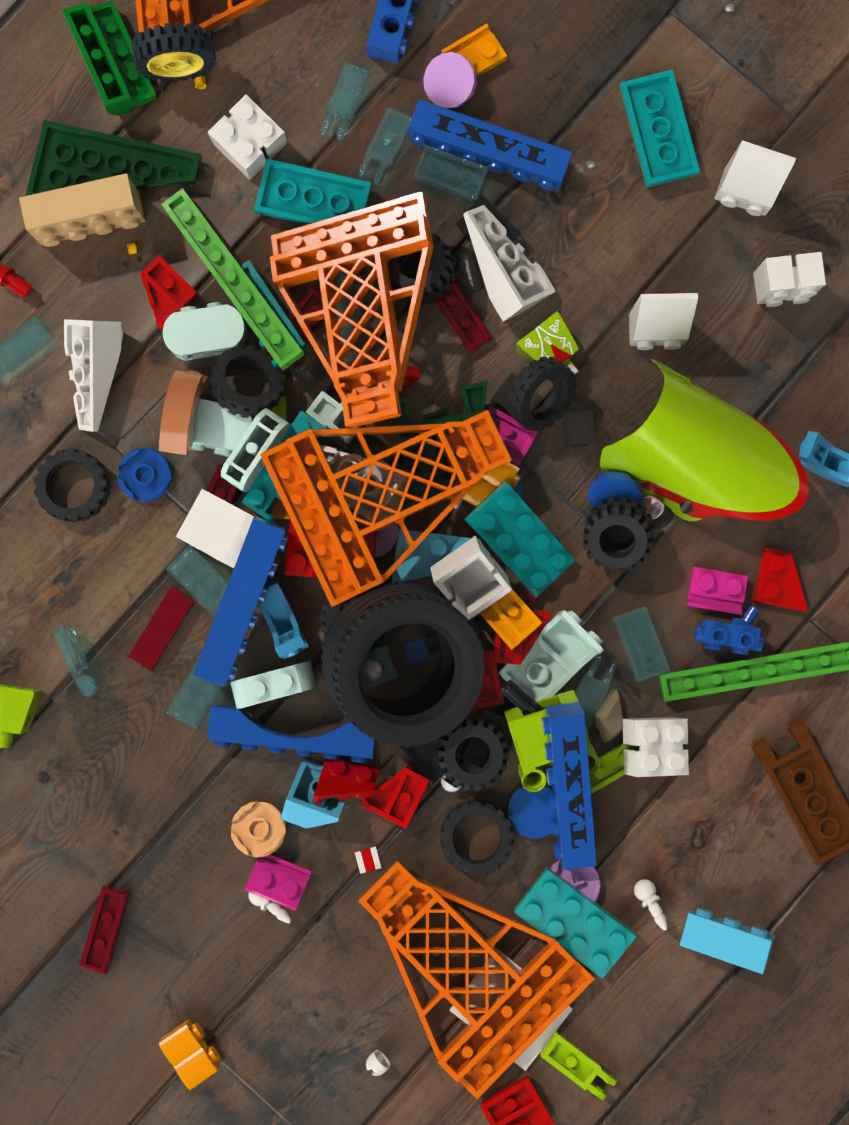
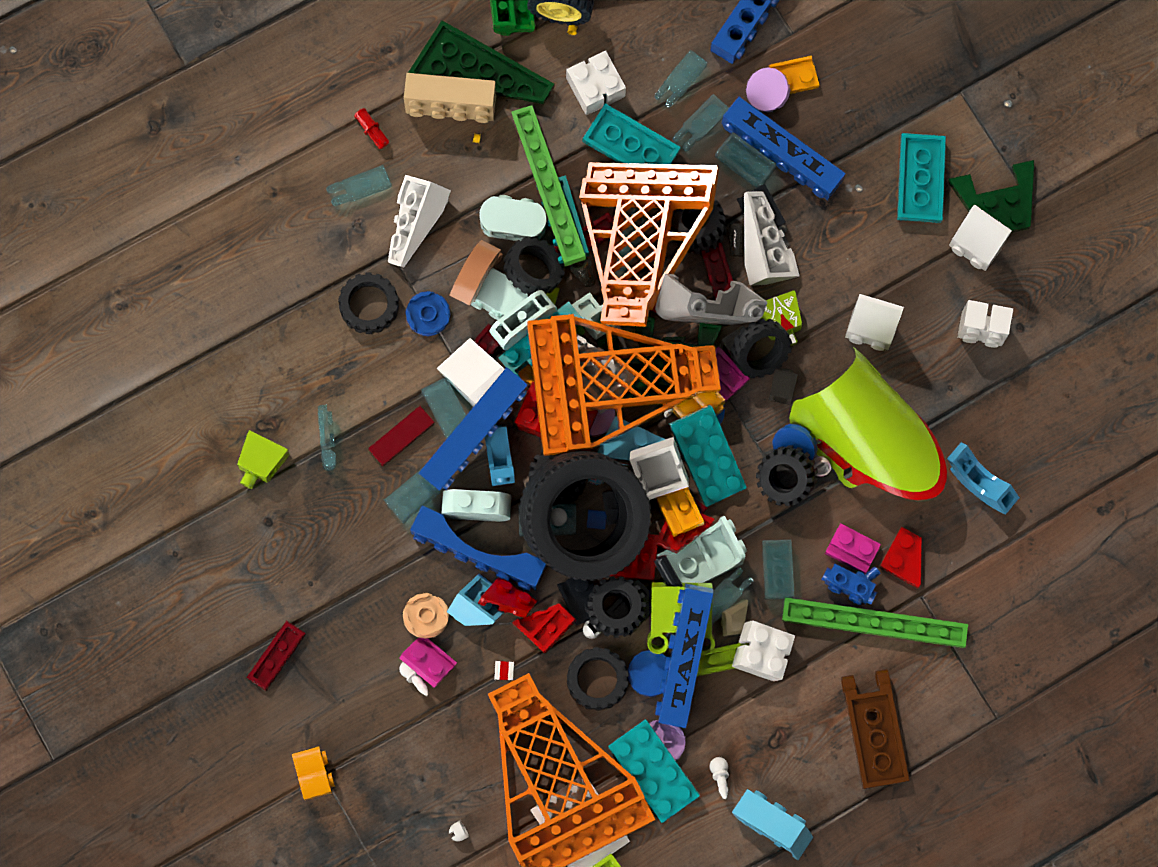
camera: 10 degrees right, 10 degrees down
(165, 290) = (492, 178): red wing -> none
(493, 354) = (731, 306): none -> light grey windscreen
(769, 127) = (1008, 205): none -> dark green wing

